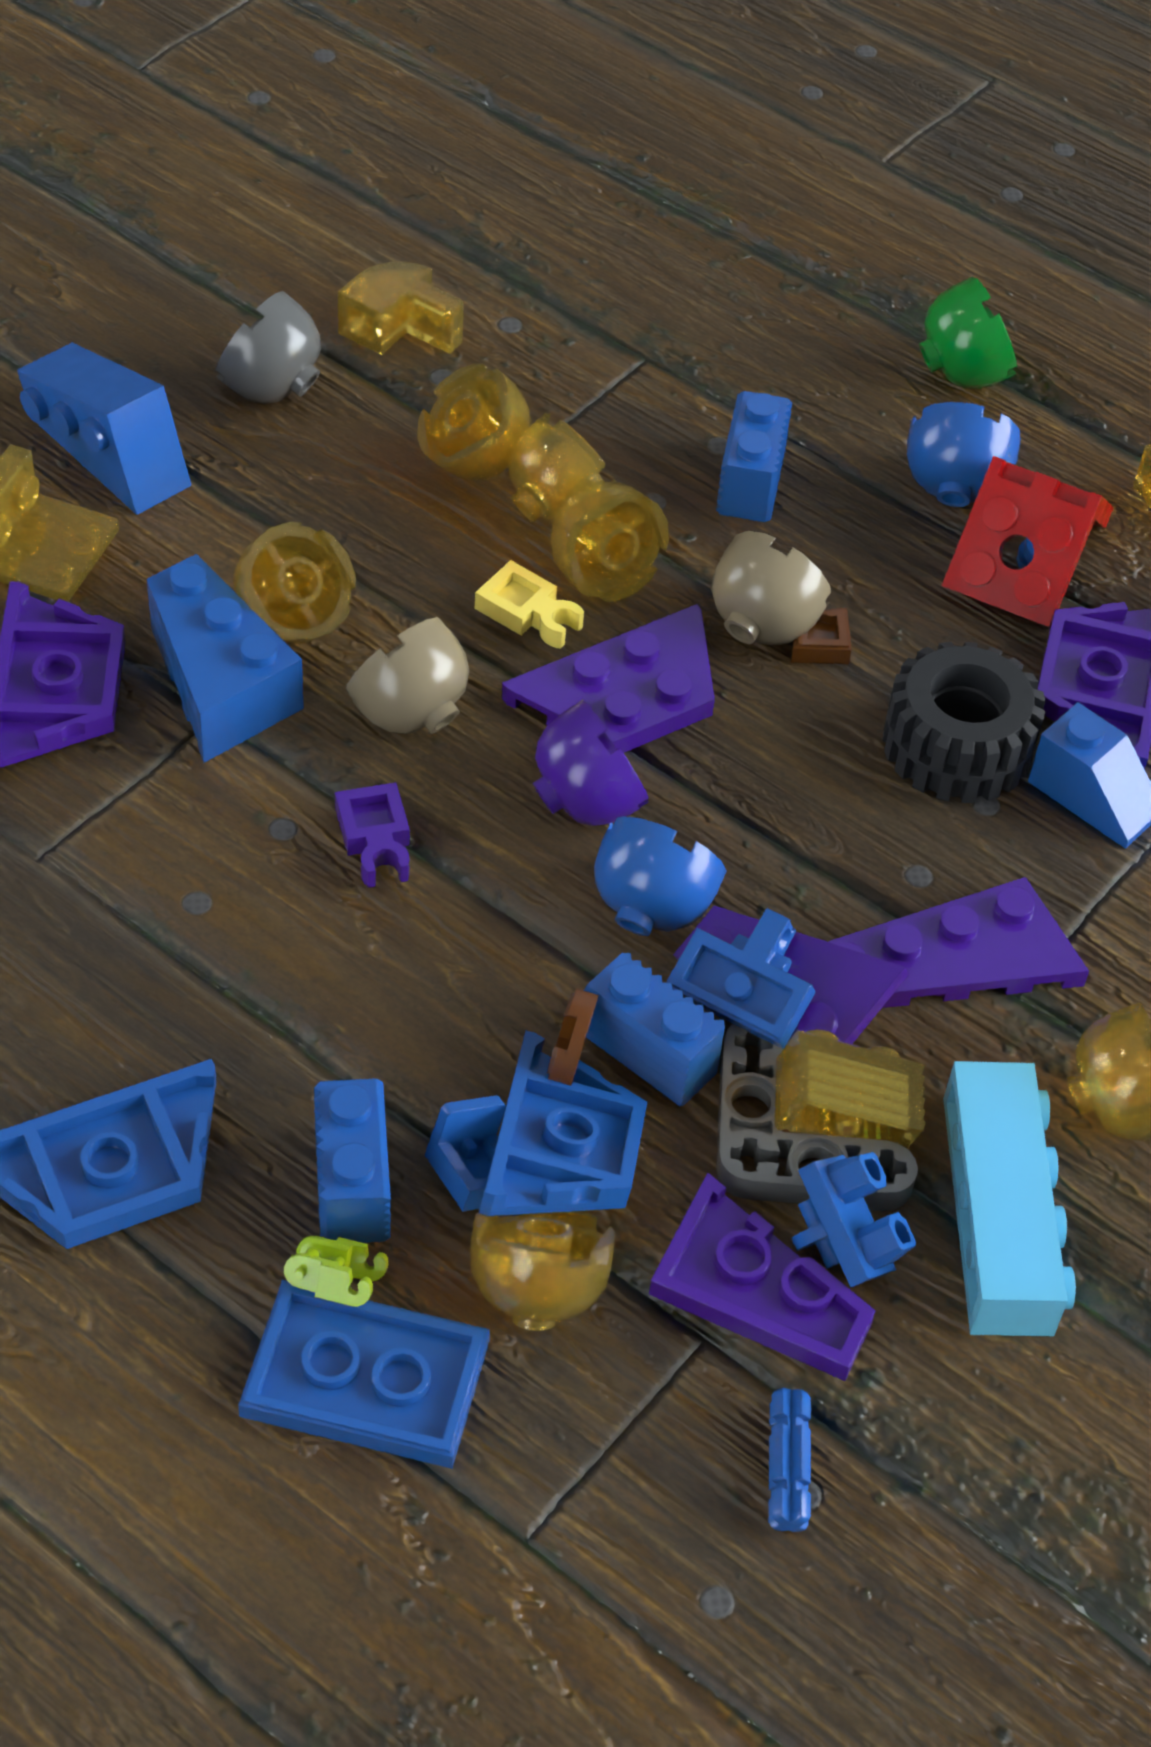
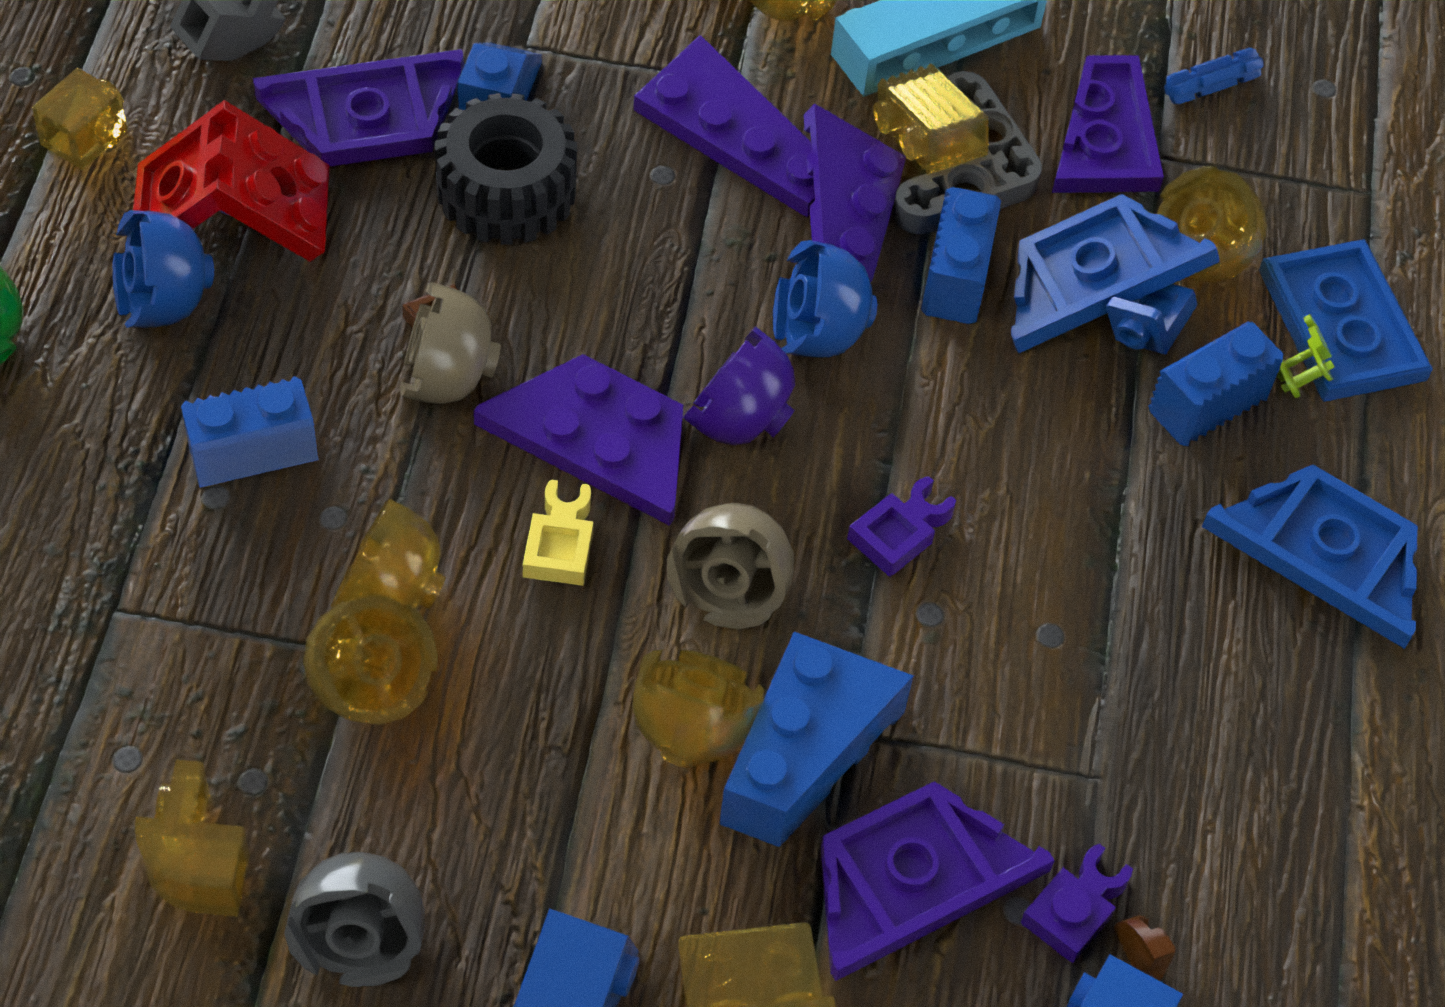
camera: 120 degrees left, 5 degrees up
(572, 1036) = (1018, 286): reddish brown tile -> none
(608, 540) = (459, 488): clear yellow cylinder -> none
(746, 979) = (890, 196): blue hinge -> none
(842, 1221) = (1035, 80): blue hips -> none

